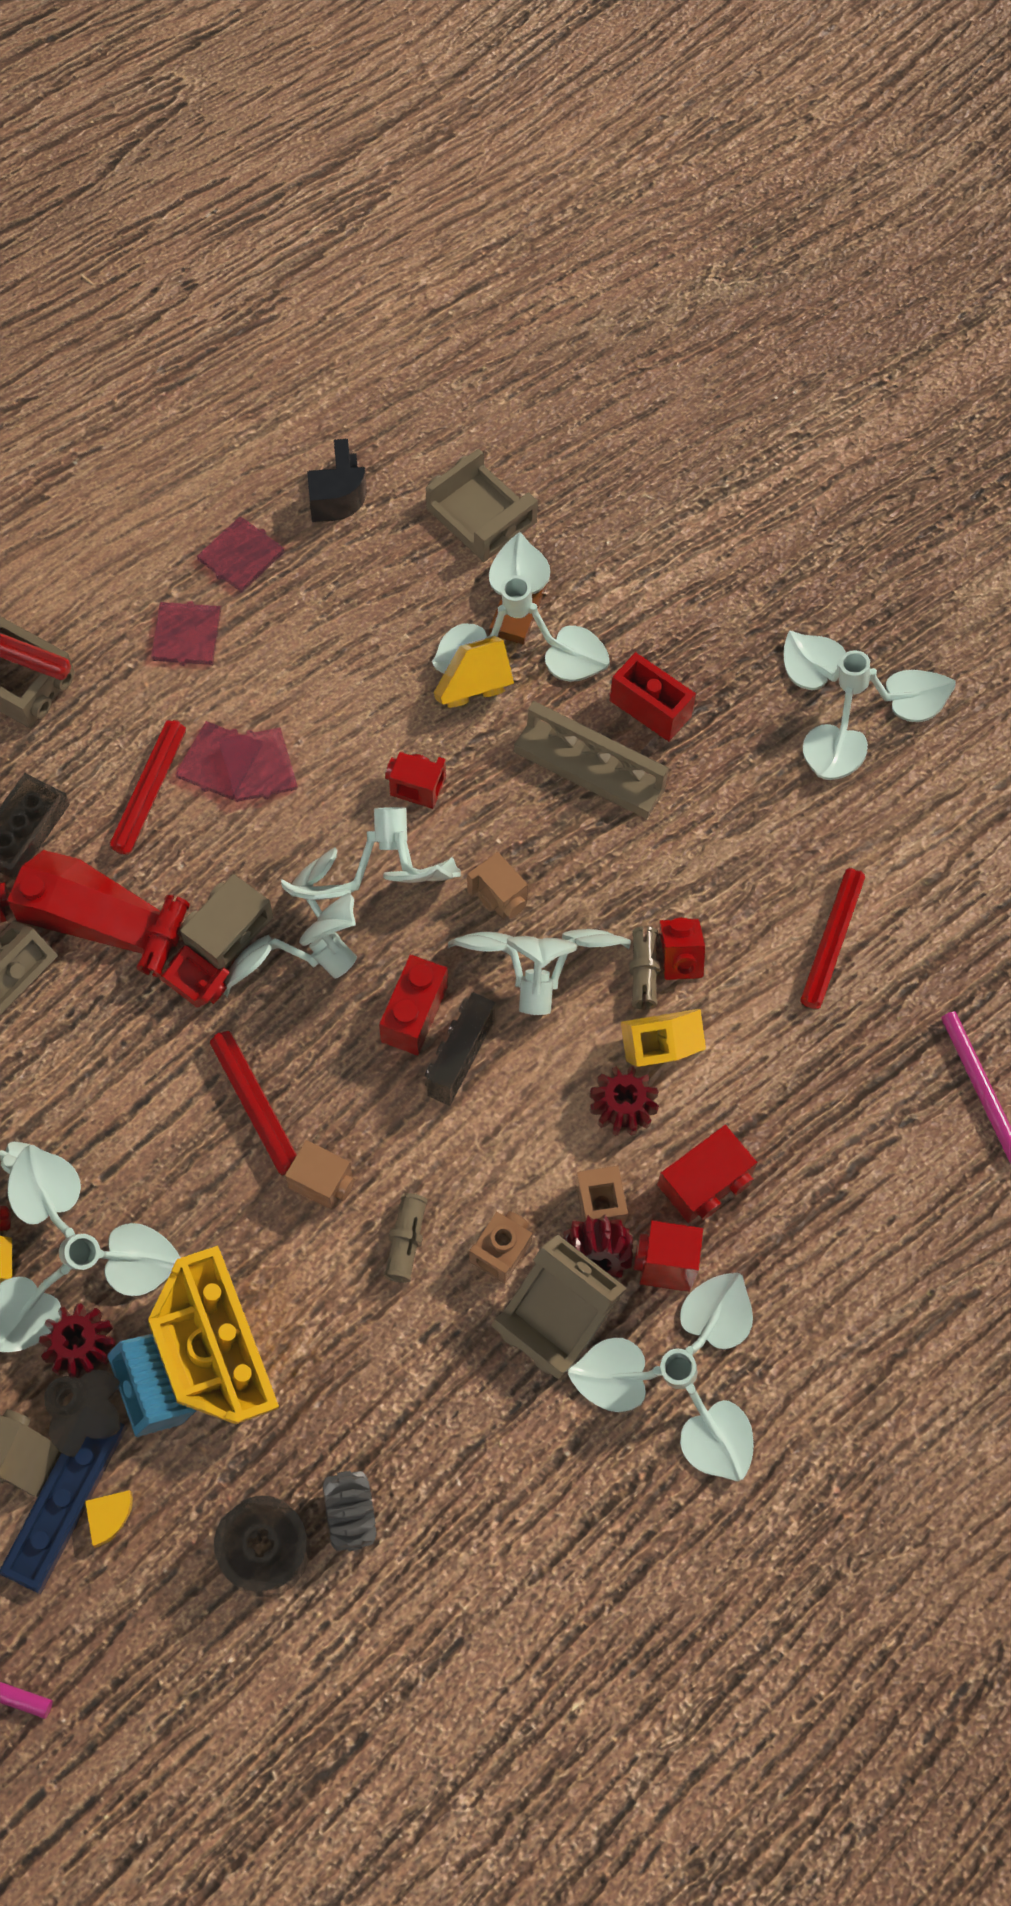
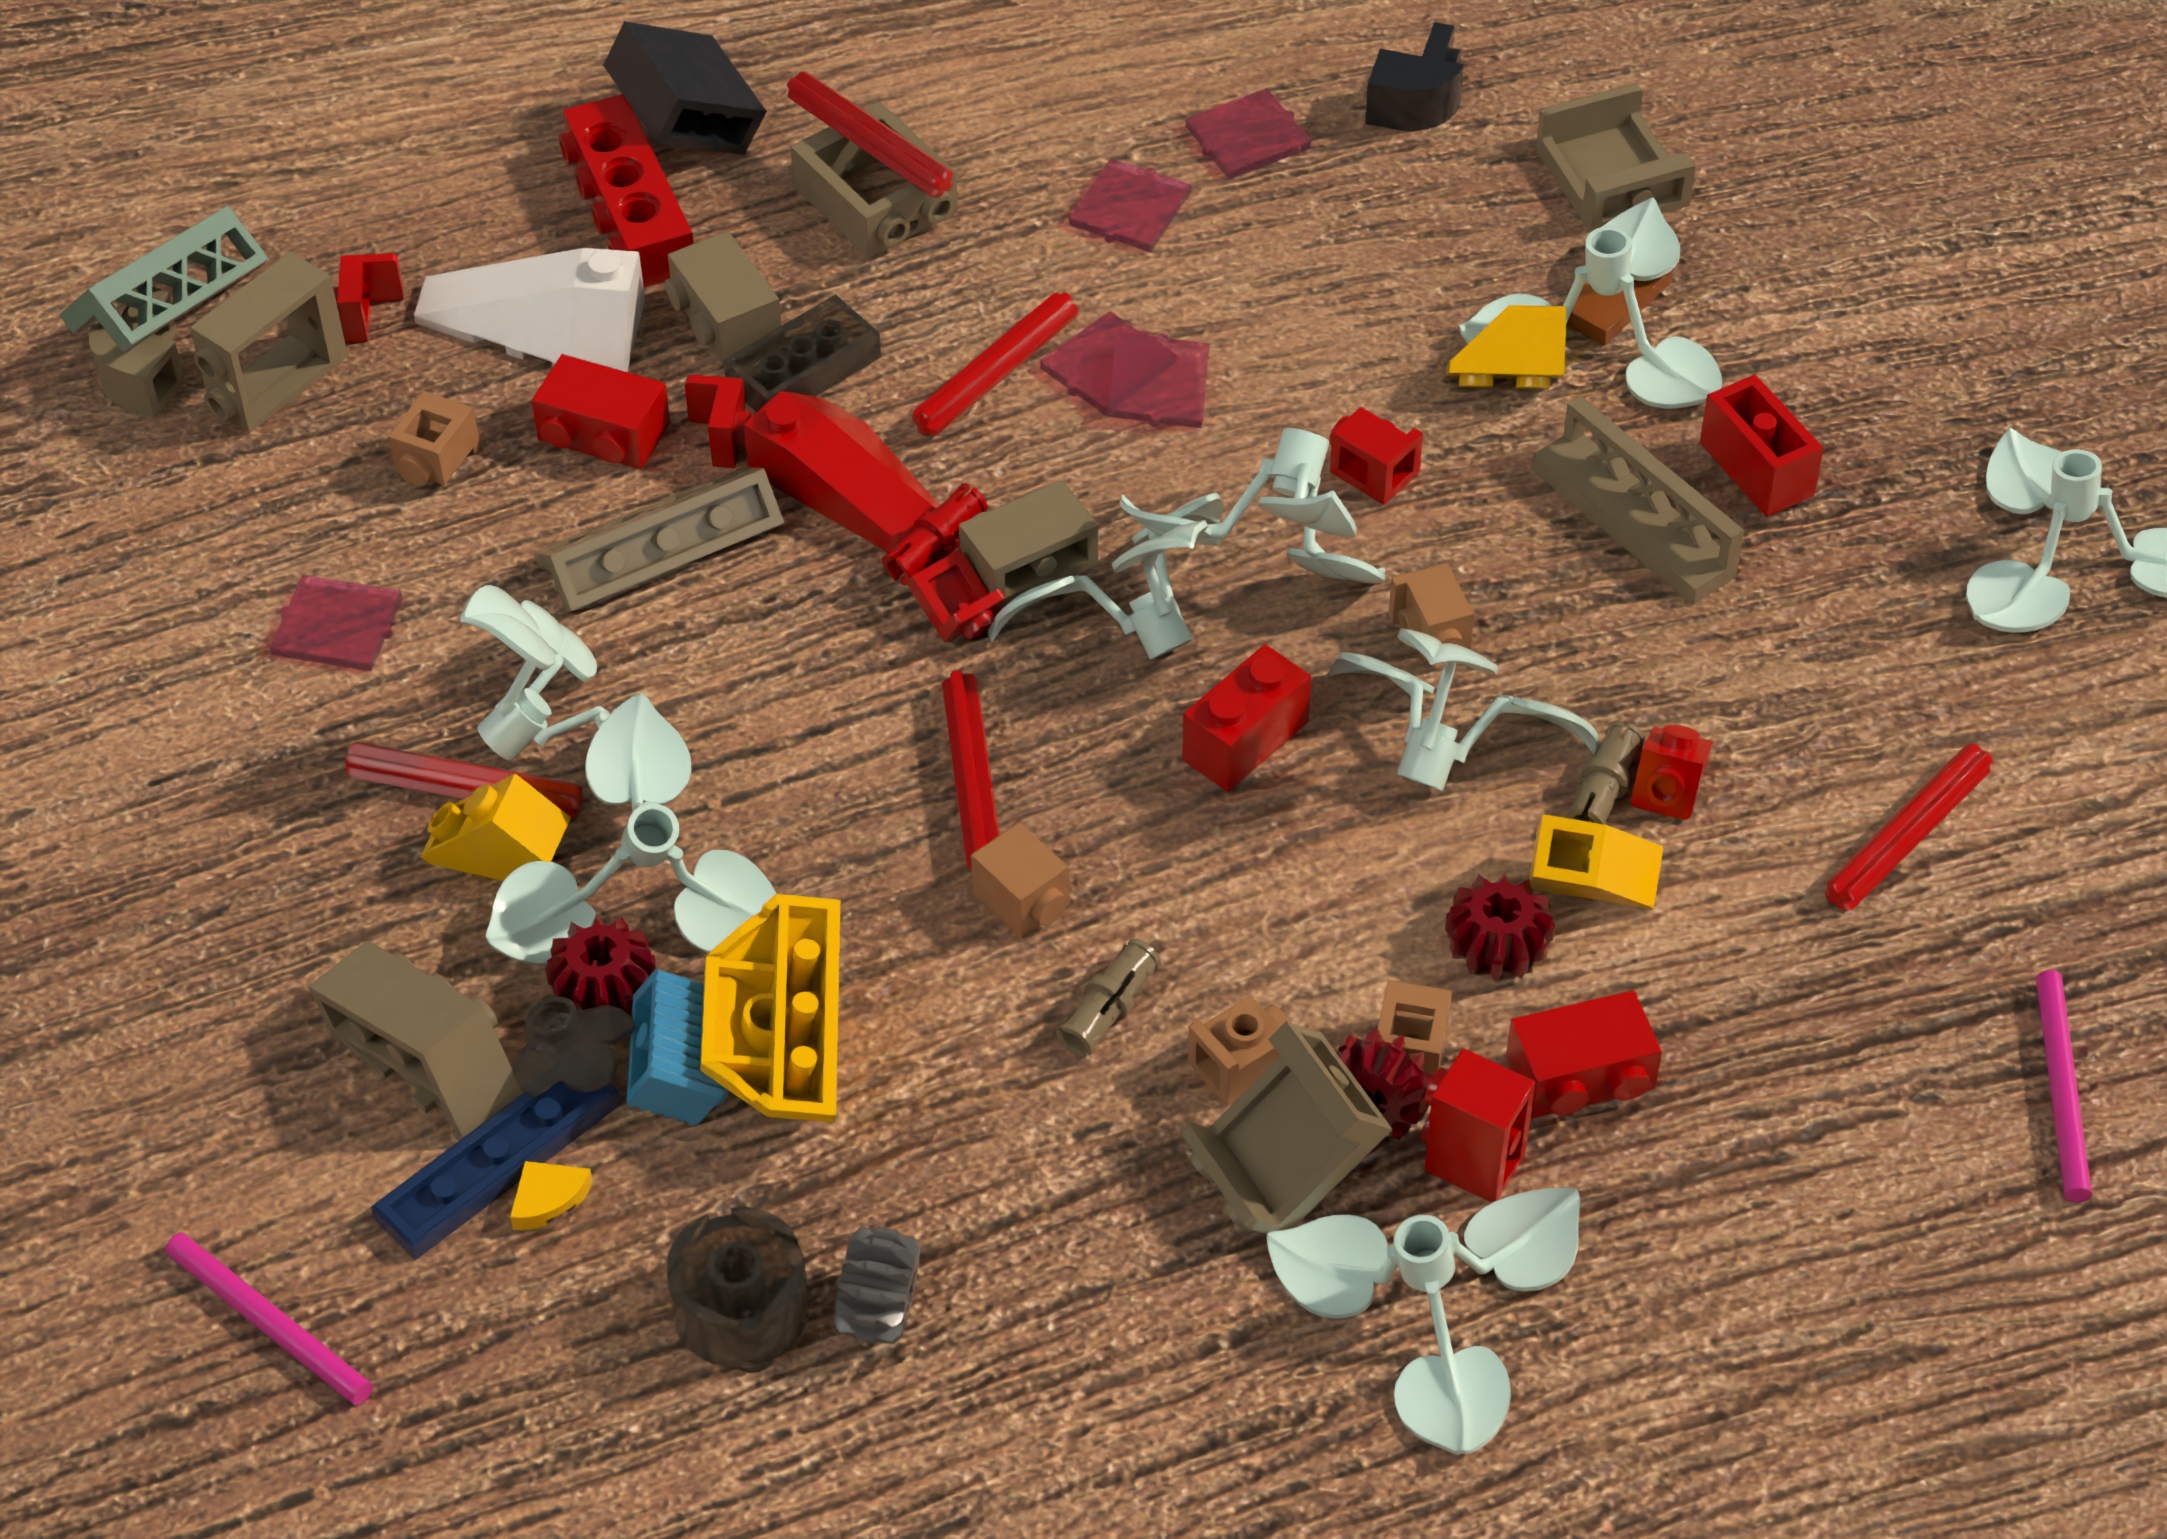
camera: 25 degrees right, 15 degrees down
(460, 1049) = (1289, 789): clear smoke piece -> none

